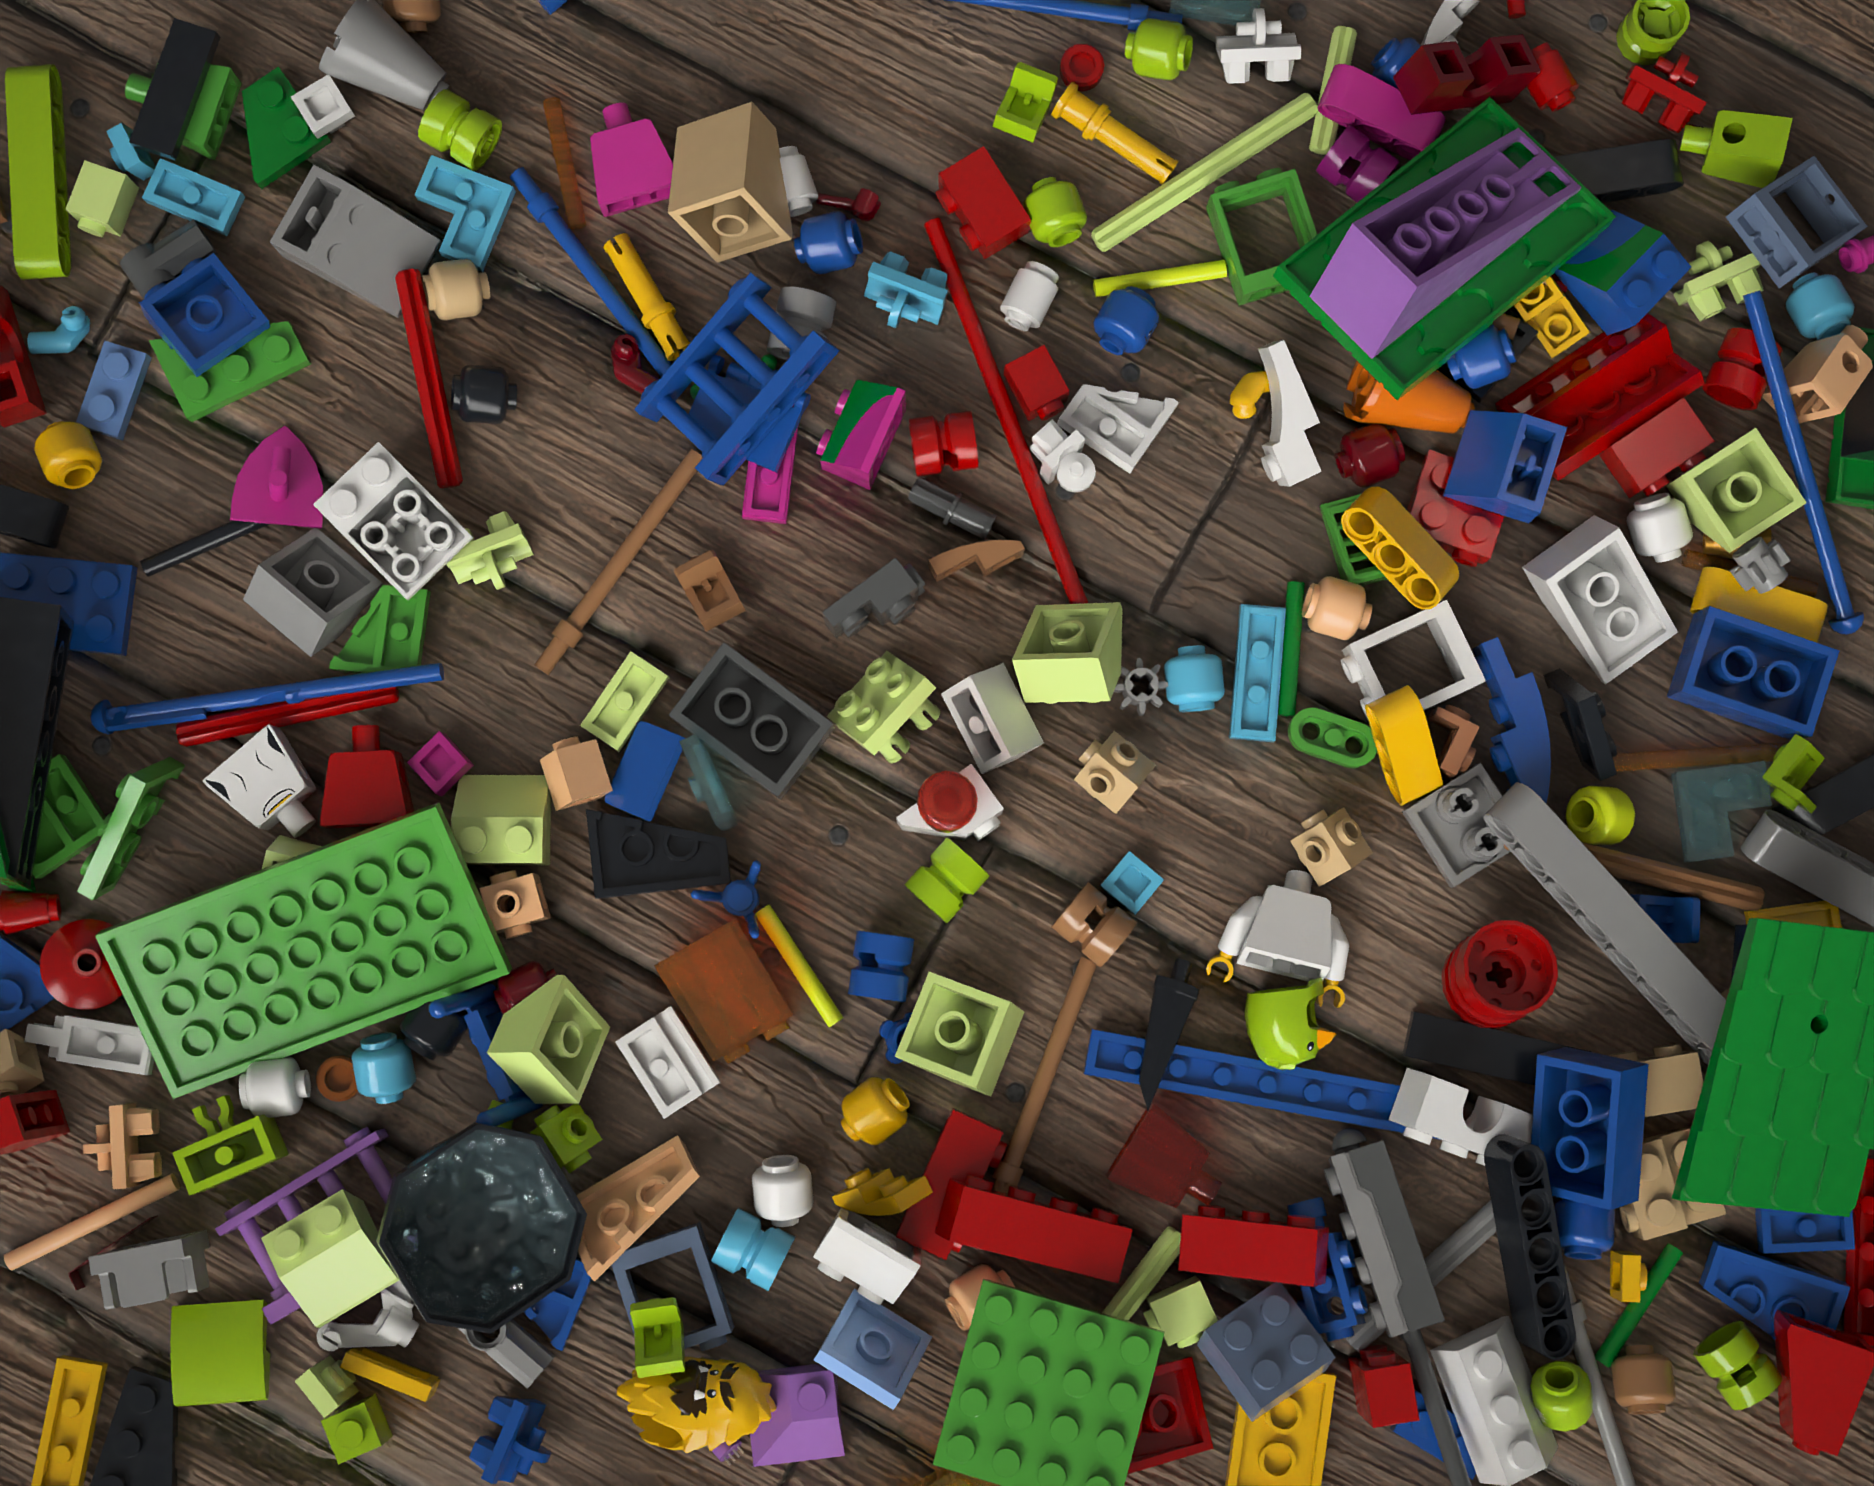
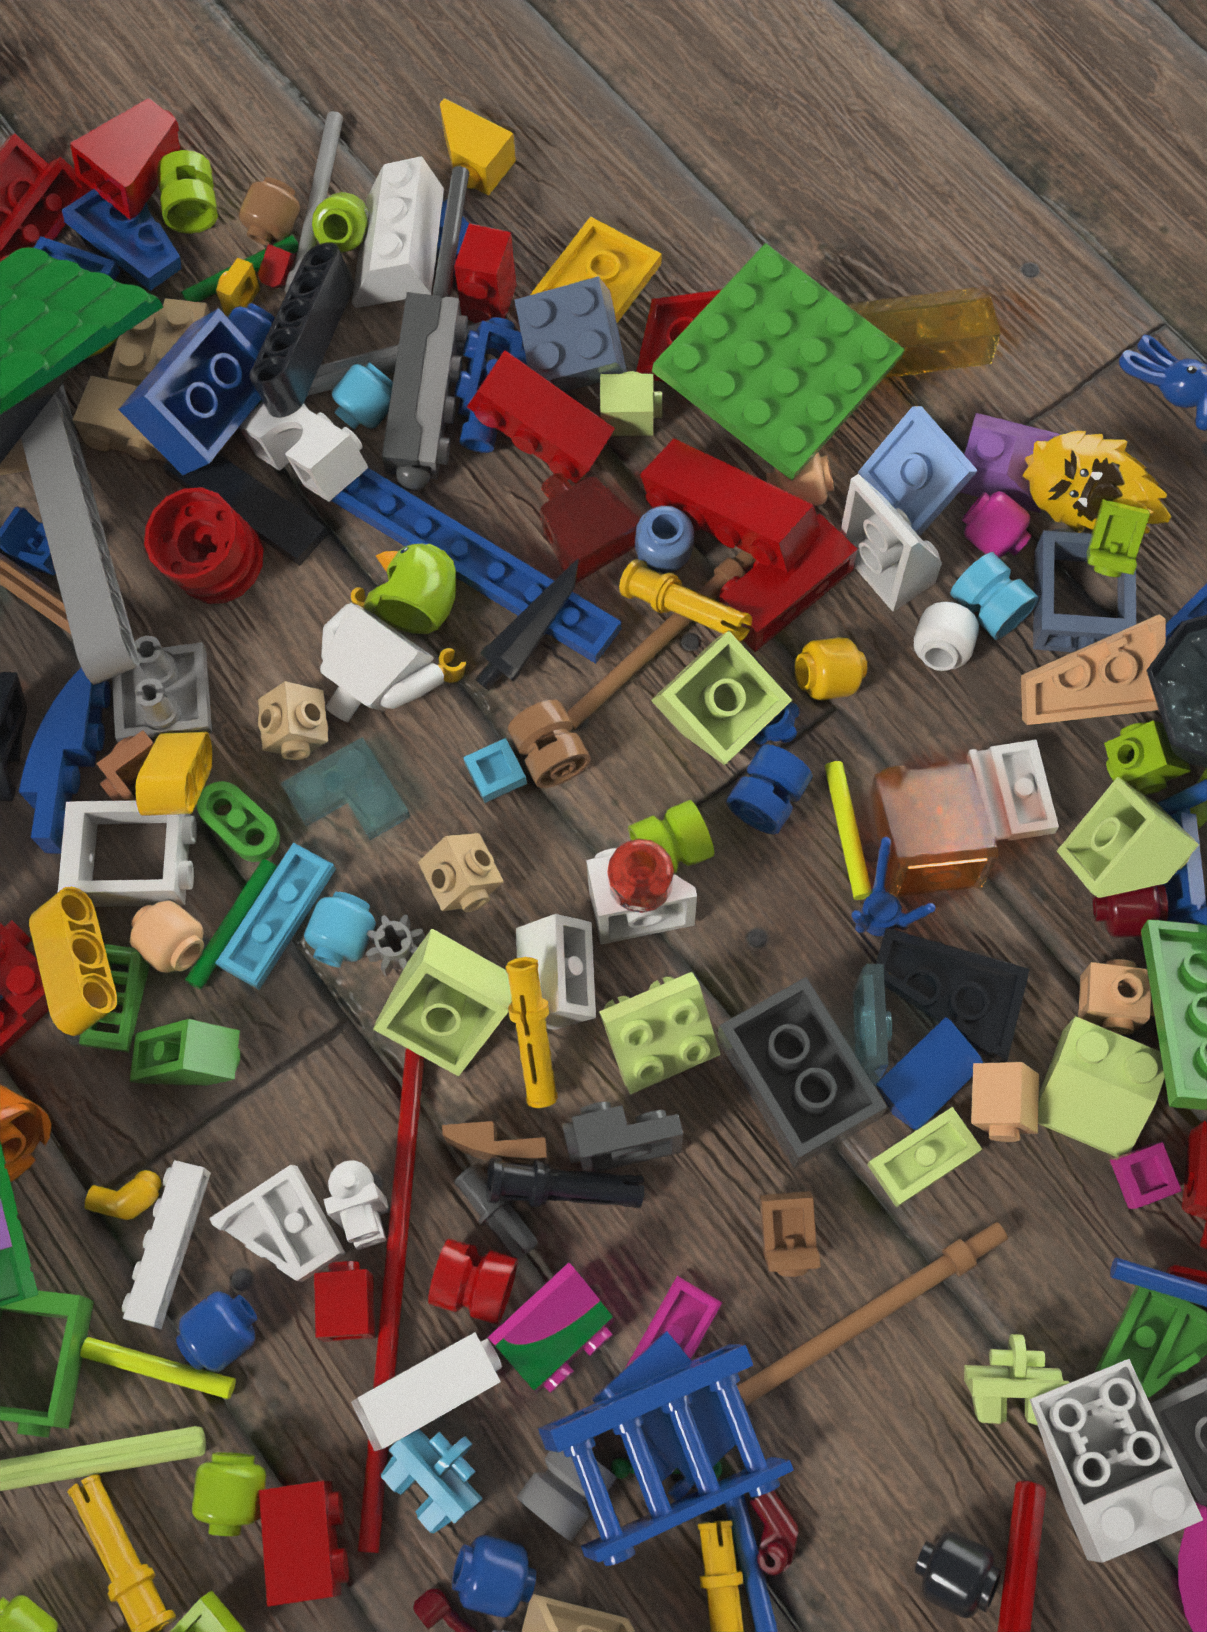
camera: 150 degrees left, 15 degrees down
(778, 1329) = (997, 524): none -> dark pink head
(880, 1193) = (858, 586): yellow slope -> none
(924, 539) = (540, 1183): none -> black pin
(937, 340) = (427, 1390): none -> white window
(994, 663) = (529, 1014): none -> yellow pin
(1030, 296) = (304, 1408): white brick -> none
(1052, 1119) = (667, 594): none -> yellow pin
(1098, 1174) = (664, 538): none -> medium blue head
(1145, 1275) = (653, 442): yellowish green axle -> none
(1203, 369) = (166, 1244): none -> white piece
(1255, 823) = (348, 778): none -> clear light blue plate
(1267, 518) = (185, 1054): none -> bright green slope
(1288, 452) = (105, 1142): white slope -> none
(1370, 455) = (50, 1073): dark red head -> none
(1439, 1208) = (363, 396): none -> medium azure head
(1600, 815) = (36, 646): neon yellow head -> none
(1603, 1321) = (275, 266): none -> red piece

